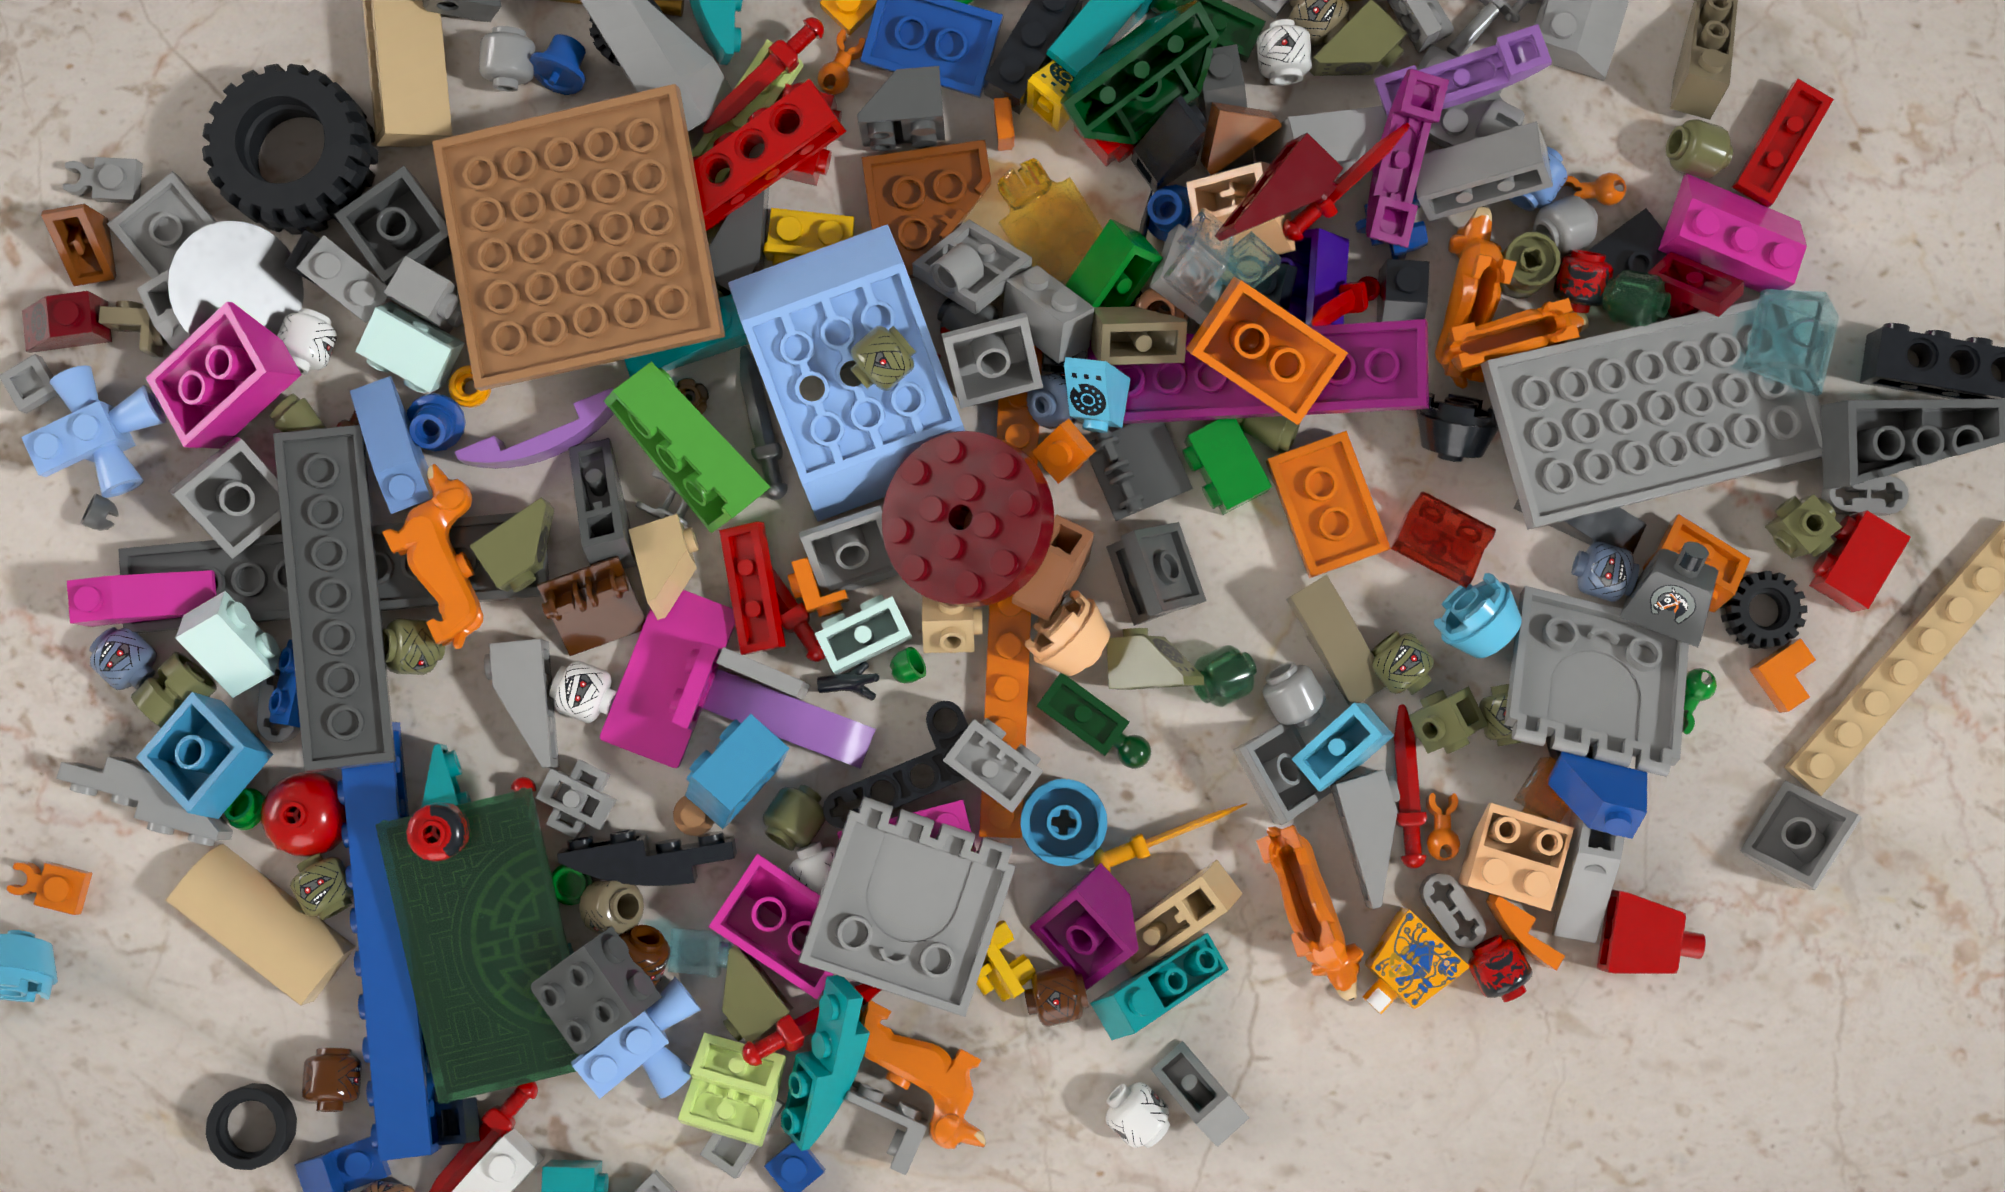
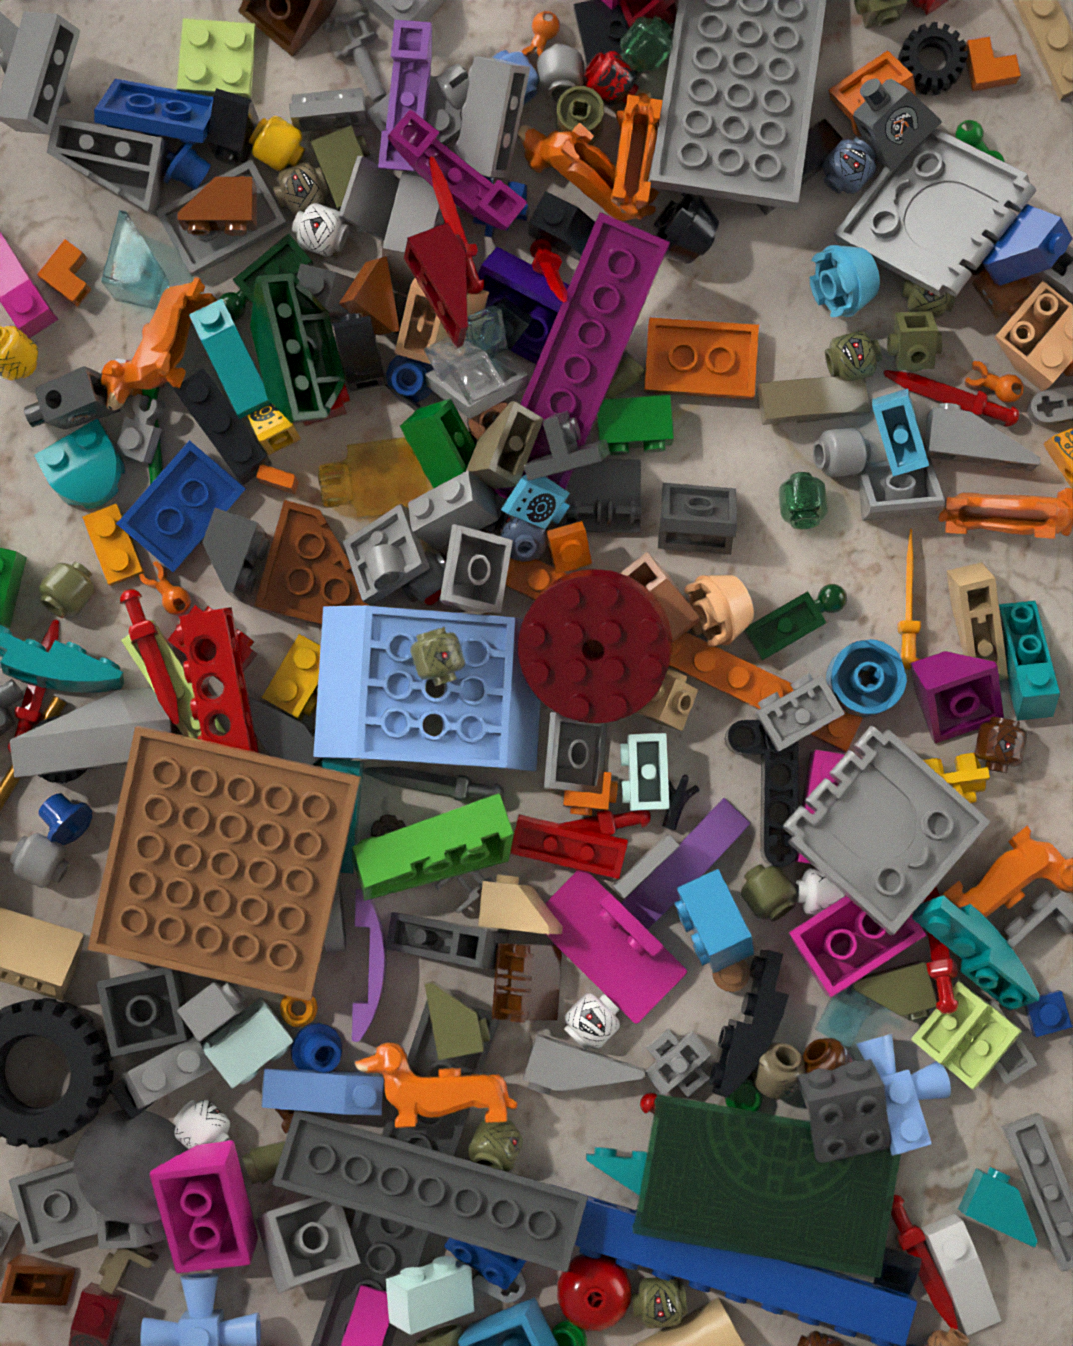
camera: 65 degrees left, 0 degrees up
(424, 835) = (675, 1189): red head -> none
(568, 385) = (336, 934): none -> light grey beam
(908, 666) = (685, 749): green hinge -> none
(1147, 663) = (768, 555): slope -> none
(1161, 395) = (565, 455): none -> dark grey bracket
(1266, 350) = (565, 349): orange slope -> none
(1340, 83) = (369, 198): none -> light grey piece
(1443, 538) = (768, 280): clear red bracket -> none

